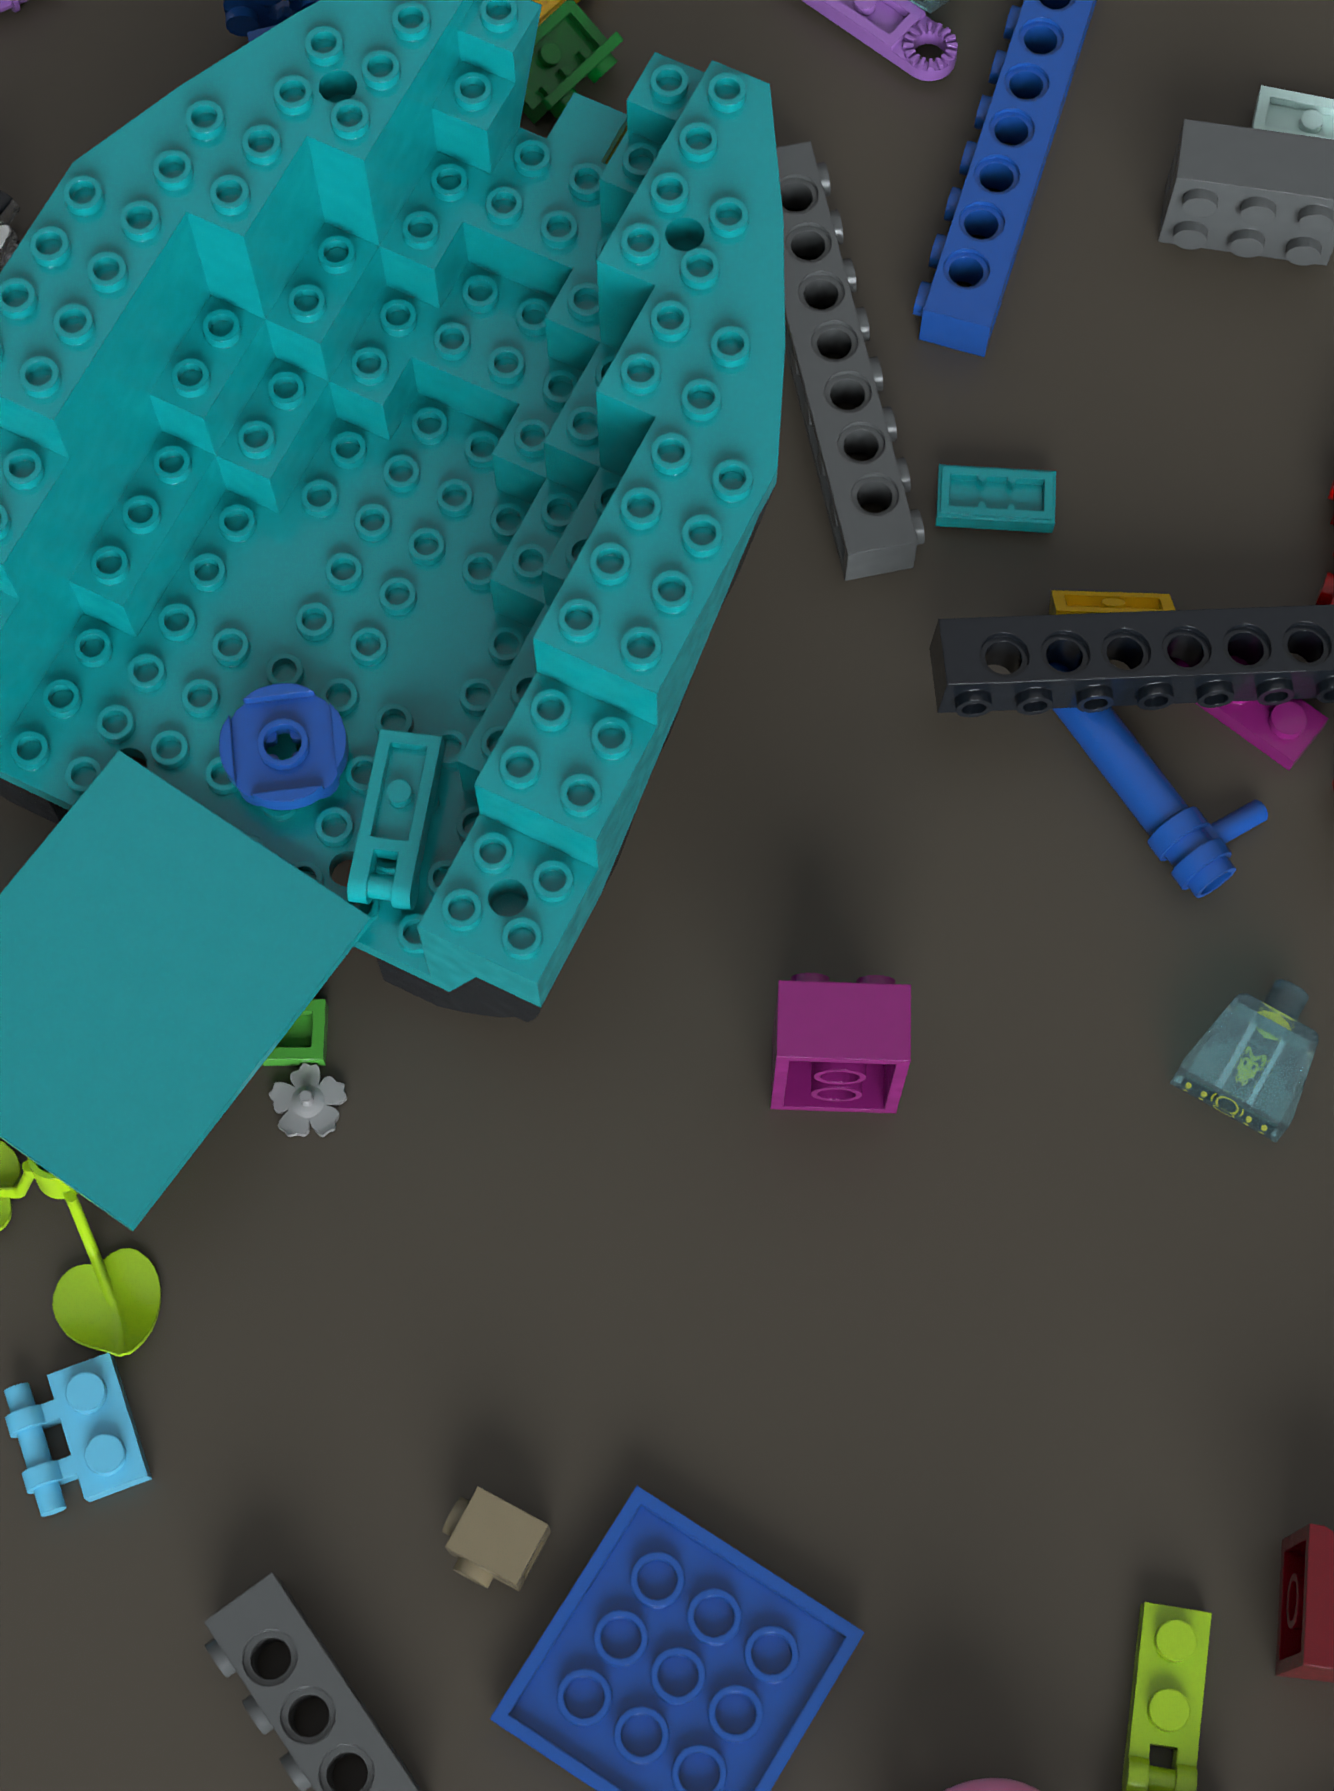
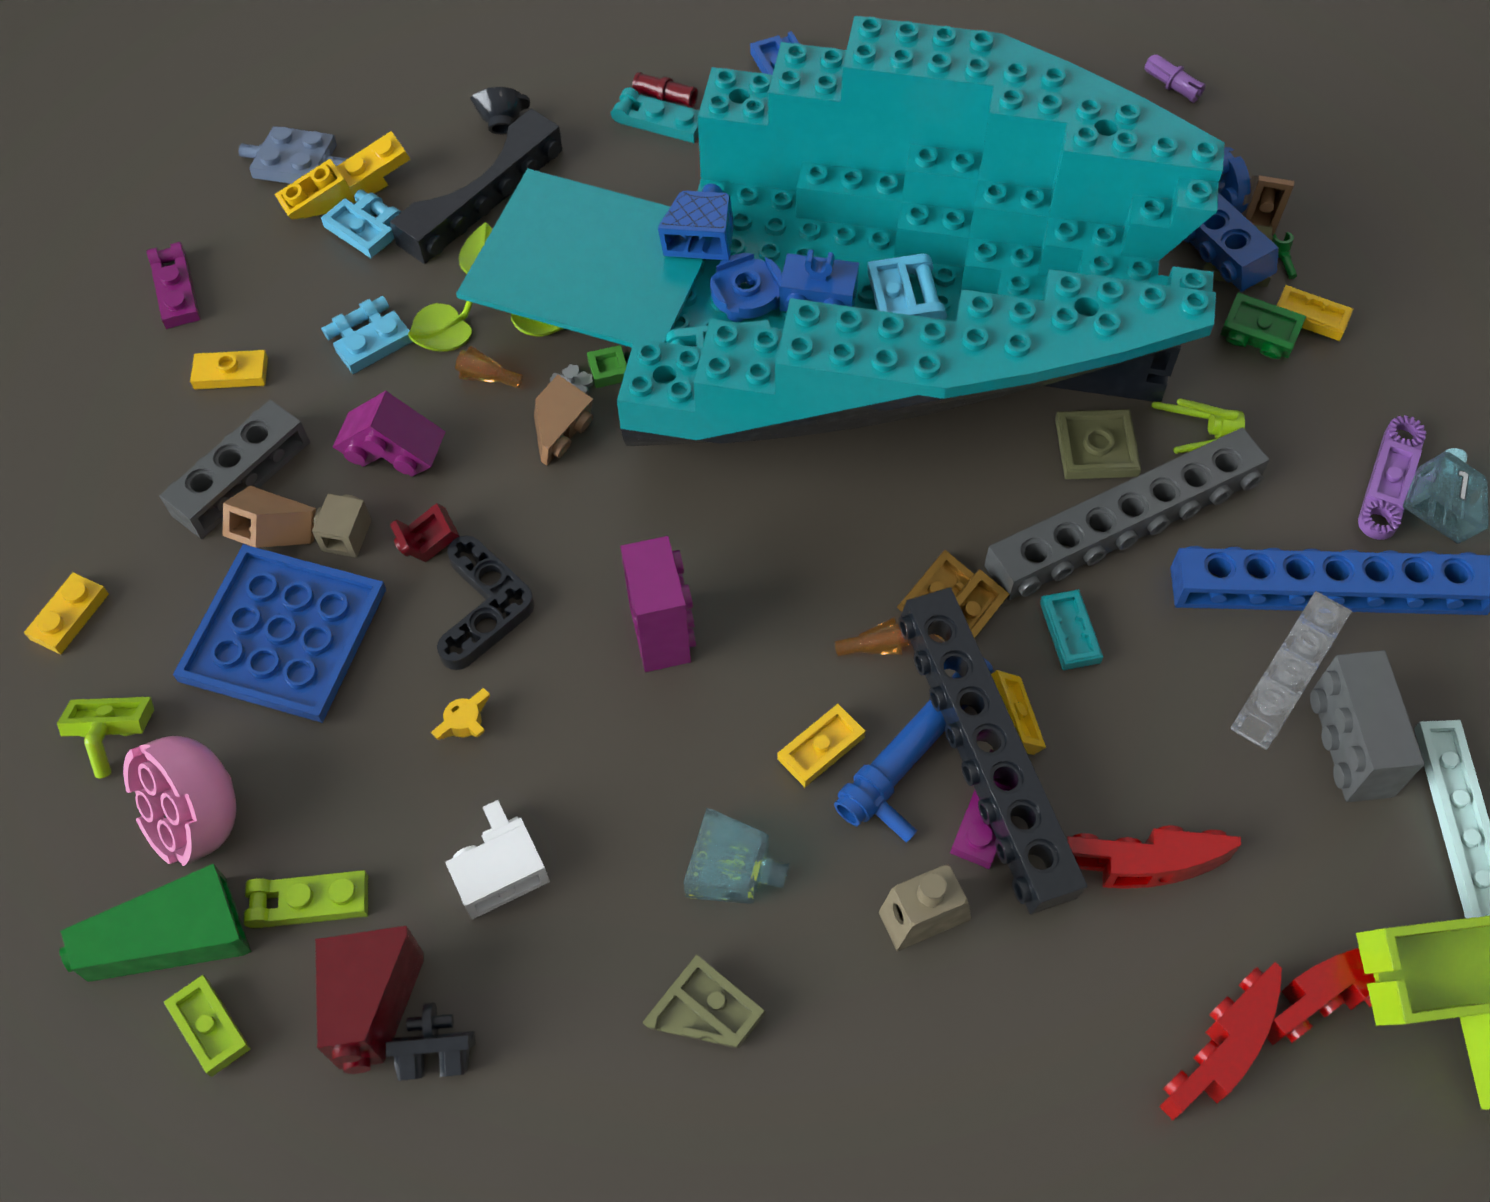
camera: 75 degrees right, 10 degrees down
(71, 1705) = (229, 369): none -> yellow plate
(145, 776) = (698, 225): none -> blue torso
(228, 1248) = (479, 367): none -> clear orange cone
(334, 633) = (818, 280): none -> blue brick
(348, 1425) = (390, 431): none -> magenta brick
(378, 526) = (893, 287): none -> medium azure plate
(392, 1135) = (558, 415): none -> medium nougat slope
(454, 1665) = (267, 519): none -> medium nougat slope
(557, 1399) = (426, 534): none -> dark red bracket
(701, 1309) = (496, 597): none -> black beam
(887, 638) = (975, 593): none -> pearl gold slope
(925, 1399) = (463, 717): none -> yellow piece
(944, 751) = (880, 639): none -> clear orange cone
(1096, 887) = (821, 745): none -> yellow plate
(1139, 248) = (1290, 670): none -> clear brick
(1190, 1387) = (500, 867): none -> white hinge

